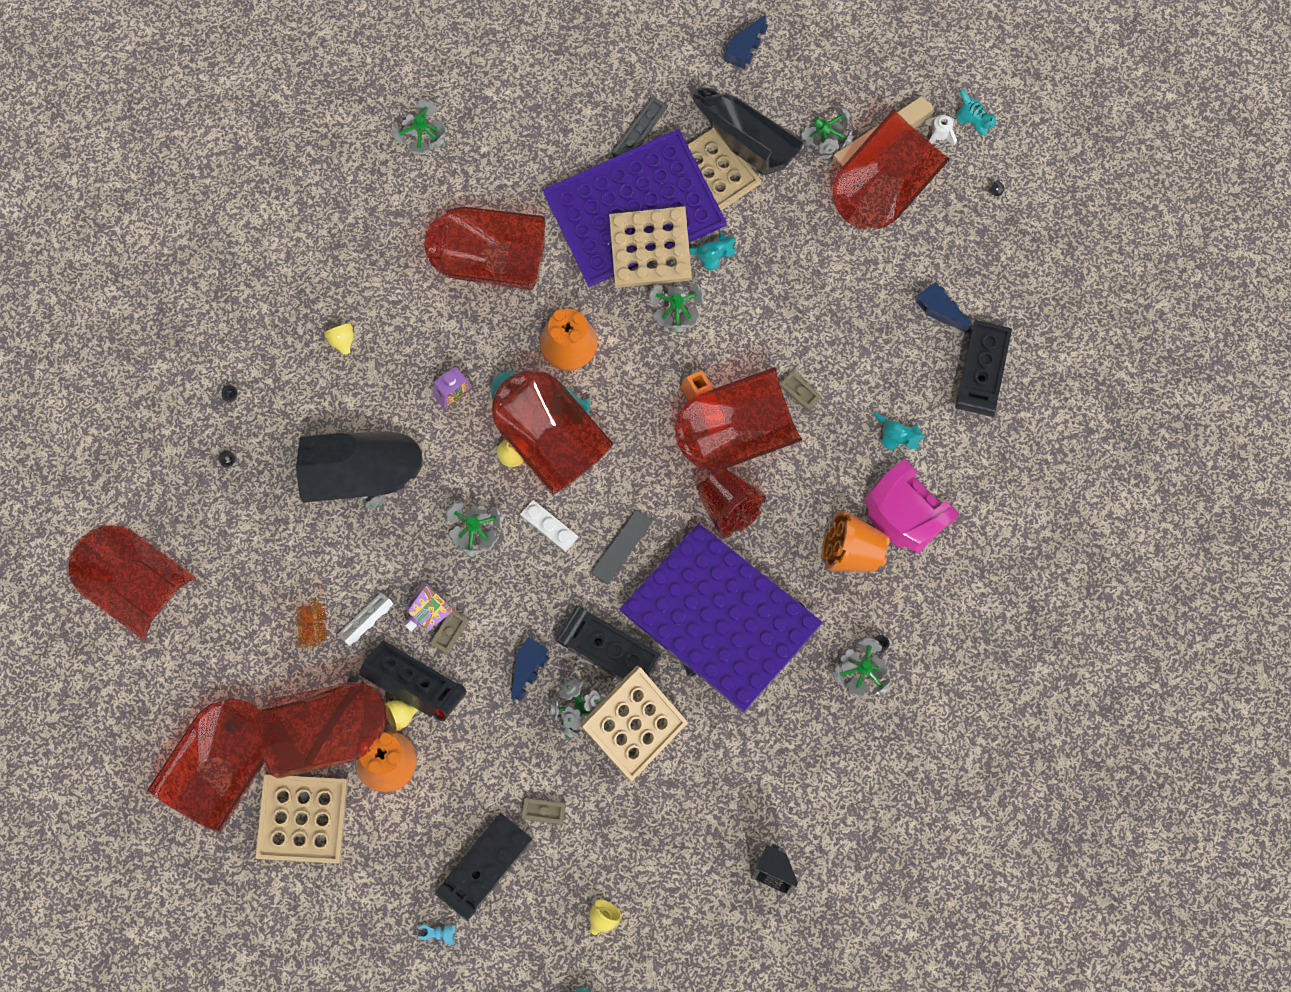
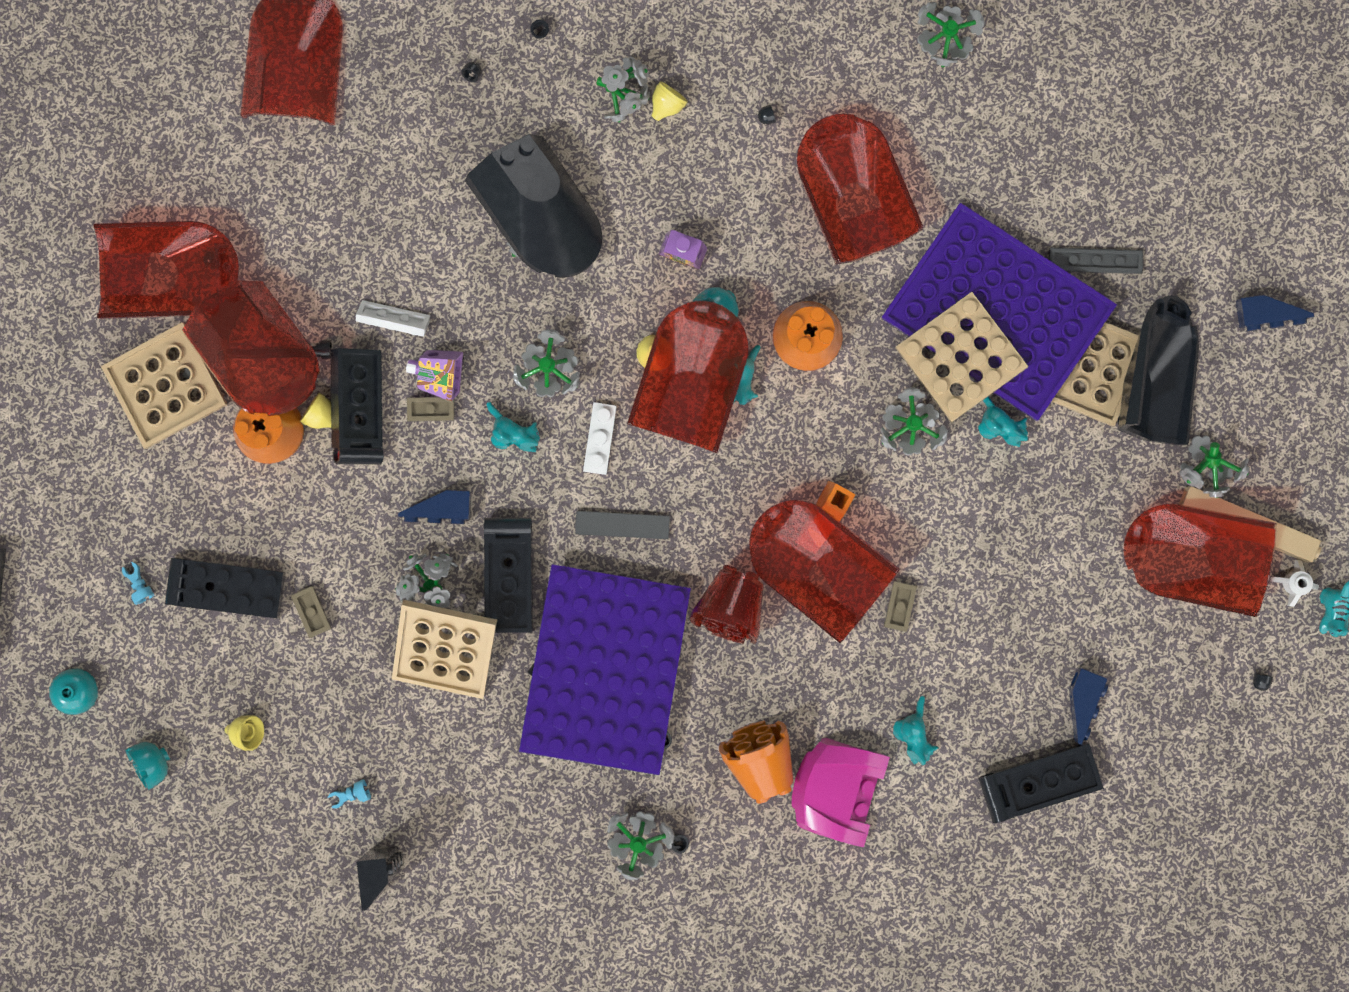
camera: 60 degrees right, 15 degrees up
(301, 354) = (614, 82): none -> light grey plant
(310, 625) = (354, 269): clear orange bracket -> none
(396, 278) = (766, 115): none -> black hinge
(503, 585) = (507, 432): none -> teal animal
(700, 864) = (351, 793): none -> medium azure piece

